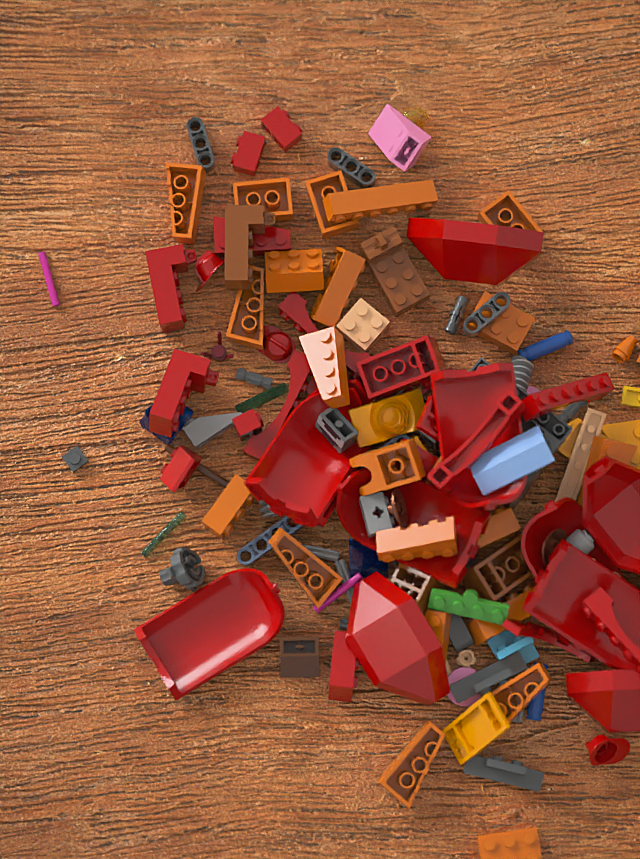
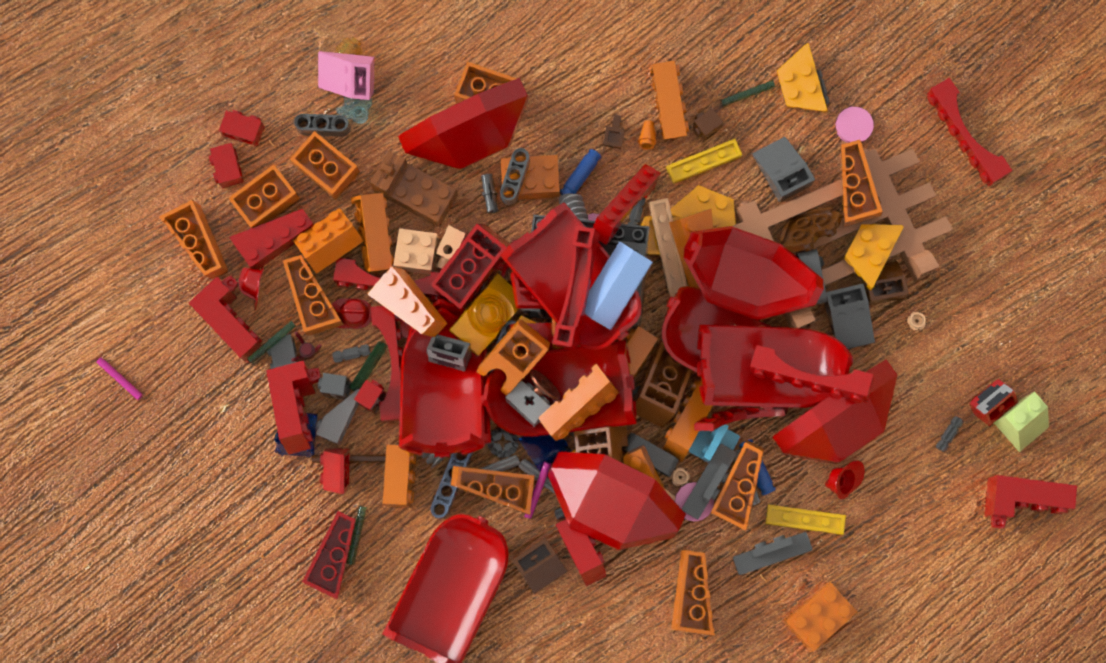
camera: 30 degrees left, 0 degrees up
(75, 459) = (239, 519): dark grey plate -> none
(128, 541) = (330, 560): none -> red wedge
(183, 569) = (393, 555): dark grey piece -> none
(193, 327) = (271, 342): none -> clear green bar
(197, 340) = (283, 352): none -> dark grey brick
(200, 136) = (176, 176): dark grey beam -> none
(223, 397) = (334, 386): none -> dark grey brick
(240, 225) = (257, 229): dark orange hinge -> none
(337, 542) = (509, 448): none -> dark grey gear
(380, 200) = (364, 136): orange brick -> none
(387, 169) = (353, 107): none -> clear light blue plate
(400, 334) = (451, 238): none -> light nougat torso
(468, 605) = (655, 431): bright green hinge -> none
(476, 728) = (727, 531): light orange slope -> none
(550, 762) = (805, 519): none -> yellow tile
(551, 542) = (691, 334): copper dish -> none
(581, 540) = (715, 316): light grey head -> none
(595, 331) = (614, 135): none -> reddish brown plate

